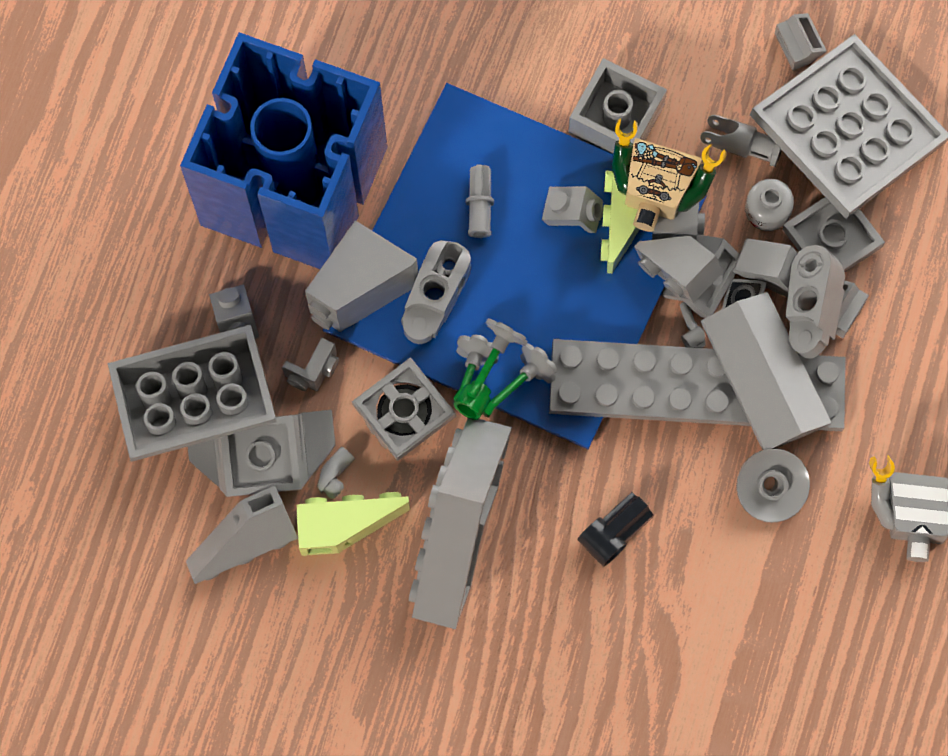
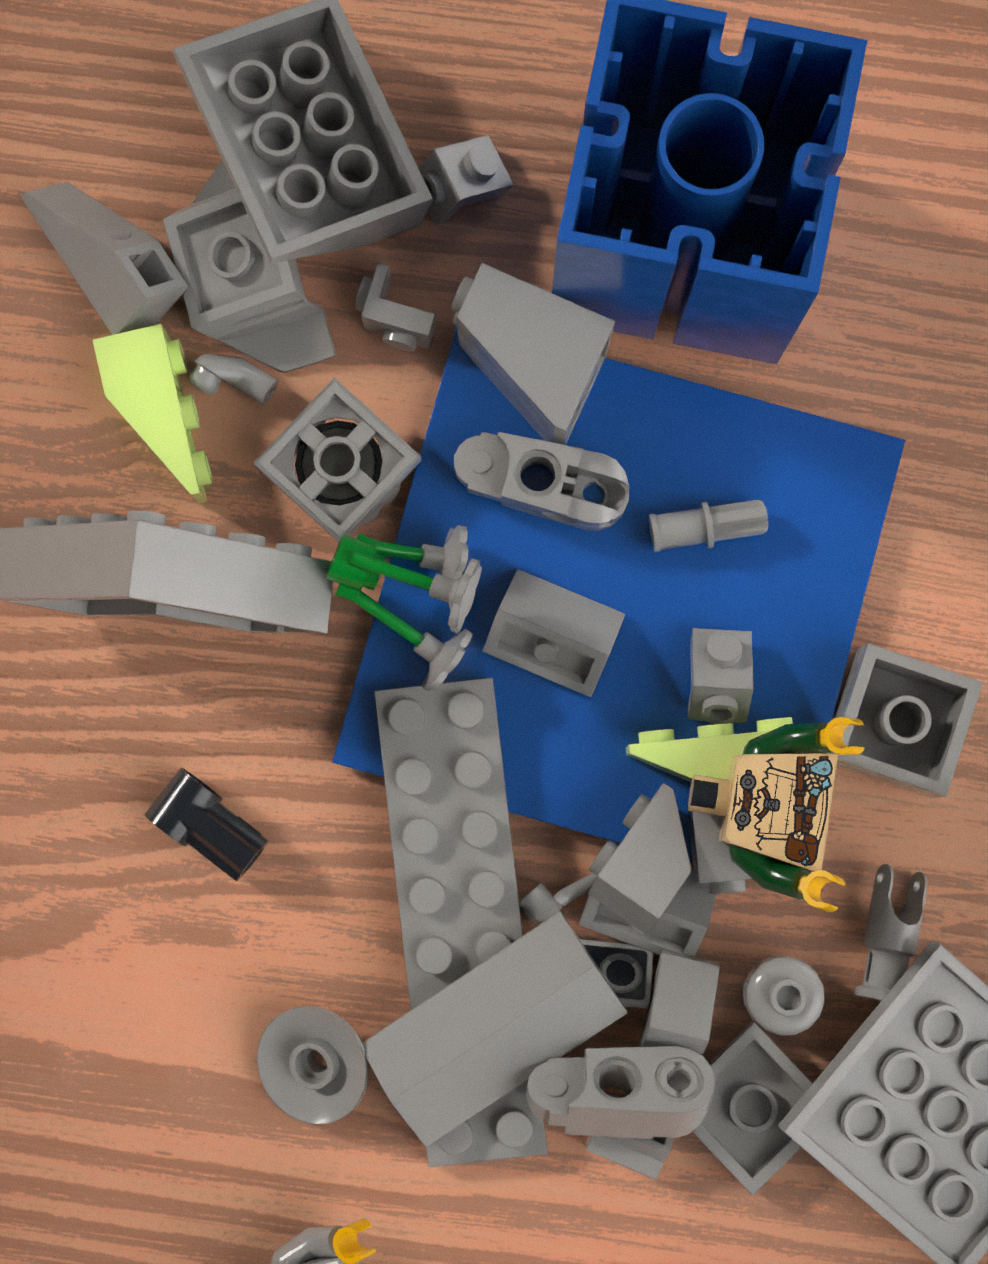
camera: 80 degrees right, 10 degrees up
(532, 299) = (553, 632): none -> light grey panel

